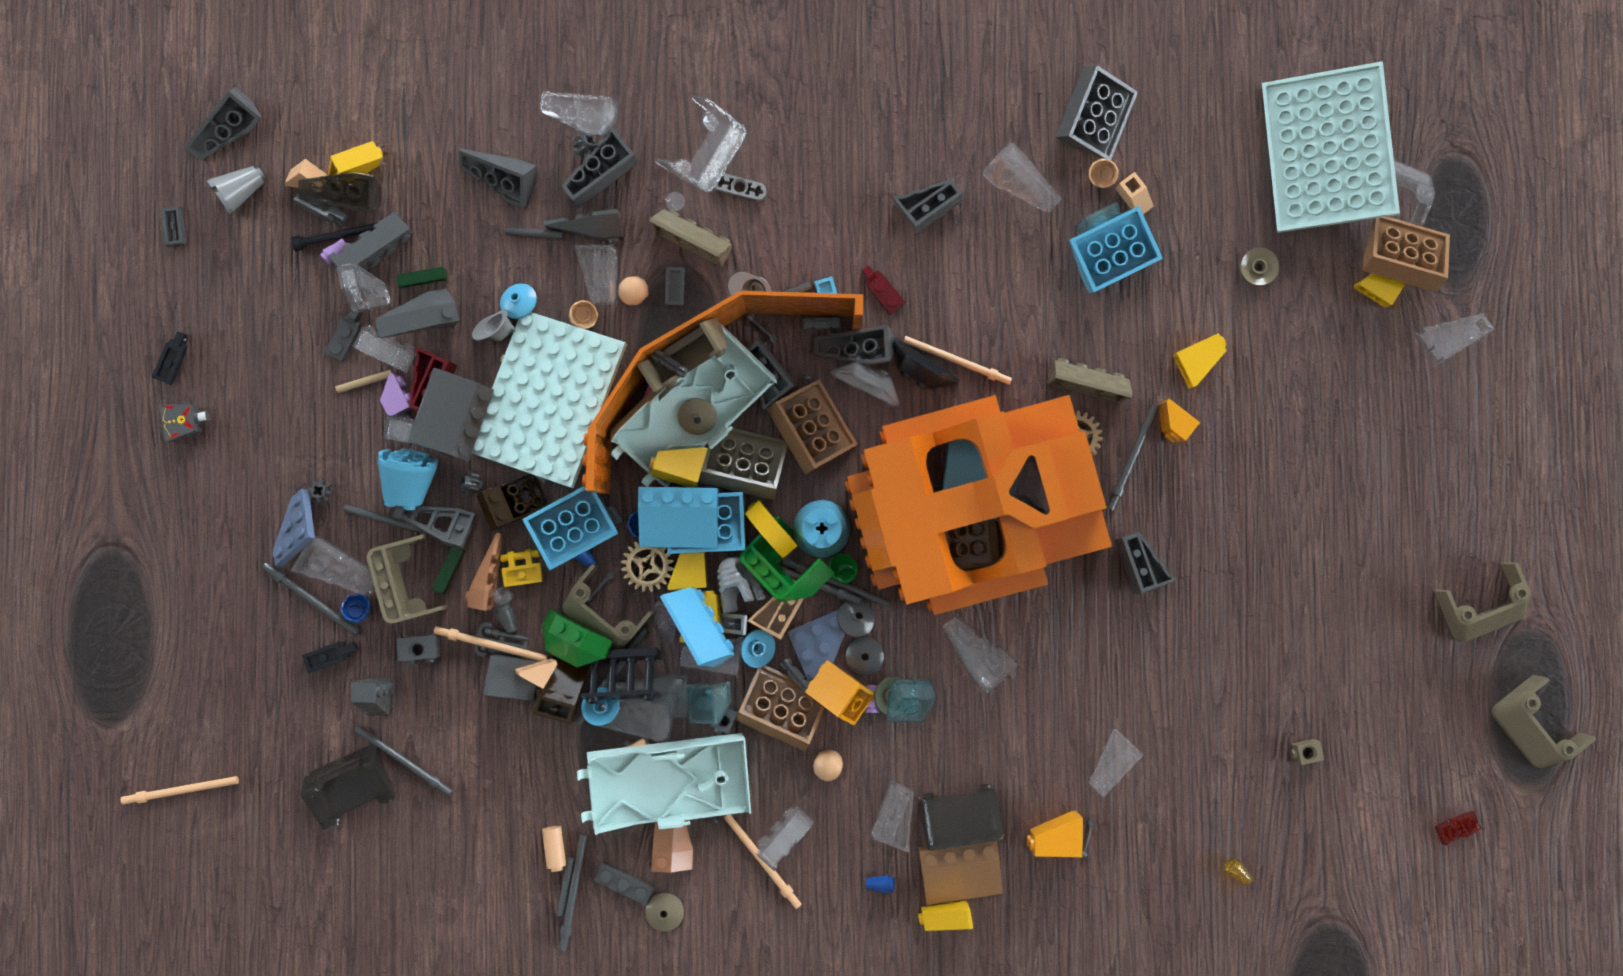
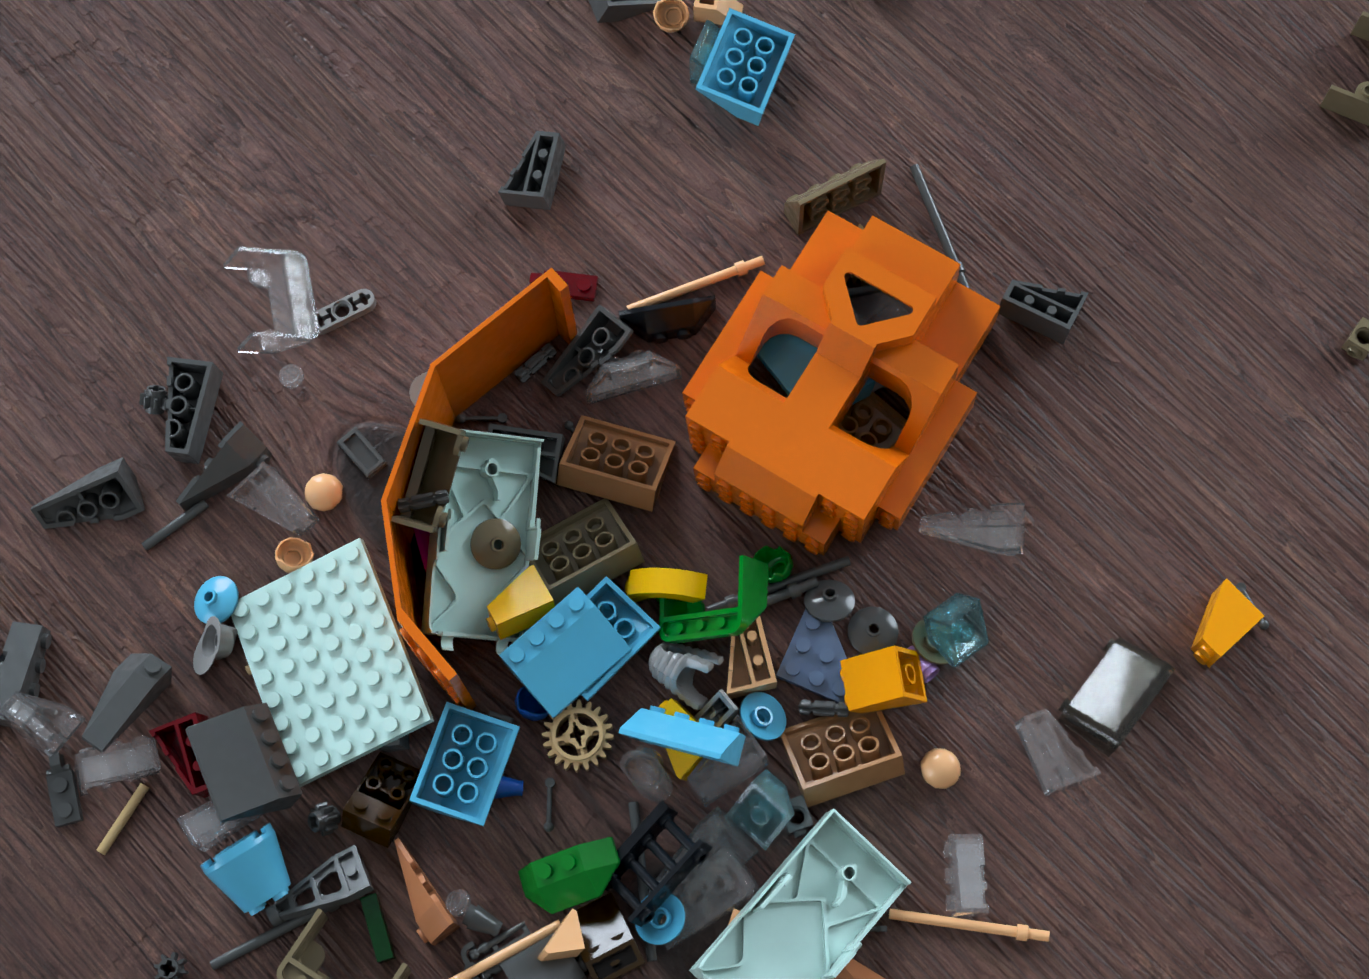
camera: 40 degrees left, 15 degrees down
(394, 396) = (167, 802): lavender slope -> none
(421, 277) = (96, 664): dark green piece -> none
(521, 574) = (459, 860): yellow plate -> none
(575, 608) = (548, 839): dark tan windscreen -> none
(583, 112) = (125, 371): clear wedge -> none
(689, 571) = (623, 699): yellow slope -> none
(691, 237) = (337, 393): dark tan slope -> none
(810, 539) = (713, 546): medium azure cone -> none
(882, 884) = (1106, 834): blue cone -> none
(946, 916) = (1199, 803): yellow slope -> none
(960, 872) = (1167, 748): medium nougat slope -> none
(1018, 176) = (598, 81): clear wedge -> none
(1114, 762) = (1202, 507): clear wedge -> none
(1176, 422) = (946, 159): light orange slope -> none
(1199, 359) = (912, 93): yellow slope -> none

